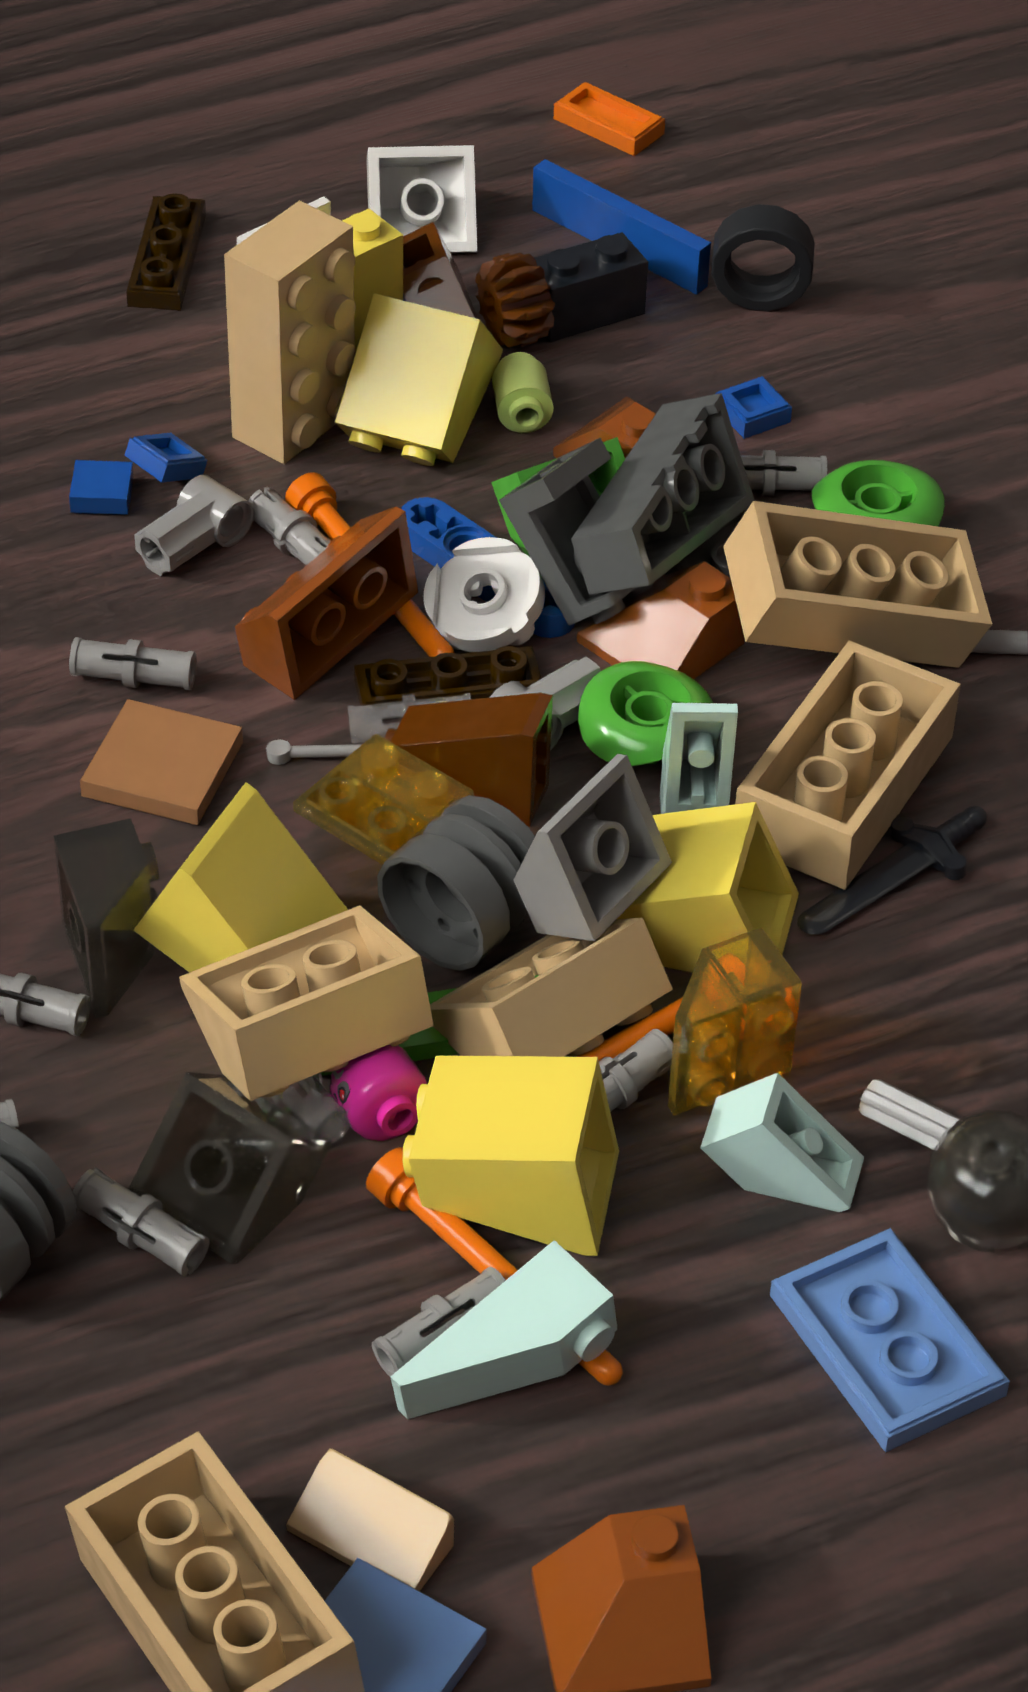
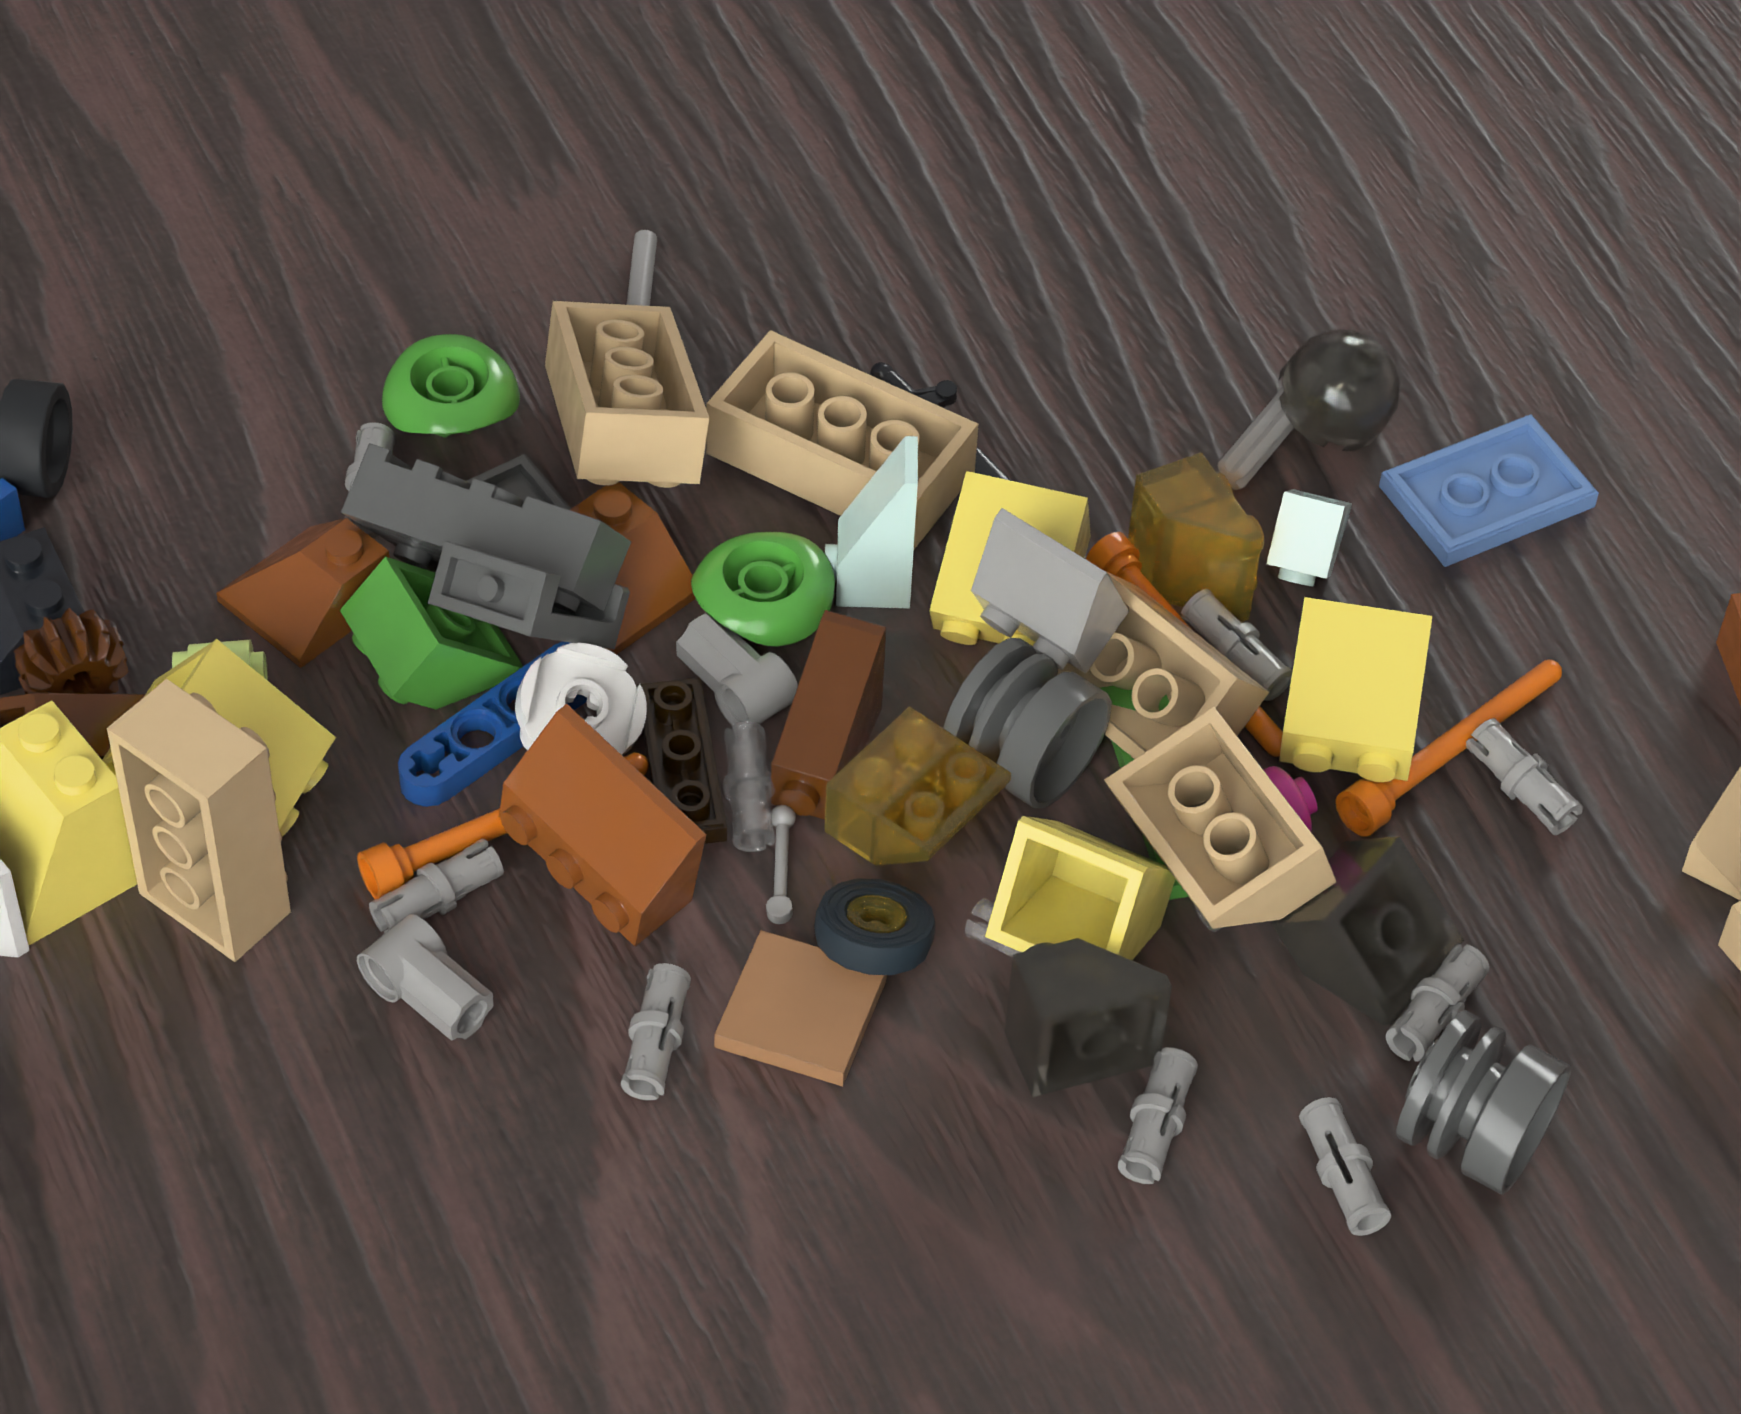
camera: 90 degrees left, 5 degrees up
(101, 487) = (332, 1079): blue tile -> none
(165, 457) = (294, 1010): blue tile -> none
(229, 767) = (874, 926): none -> black bush
(515, 1337) = (1553, 708): light aqua slope -> none
(755, 407) = (247, 489): blue tile -> none

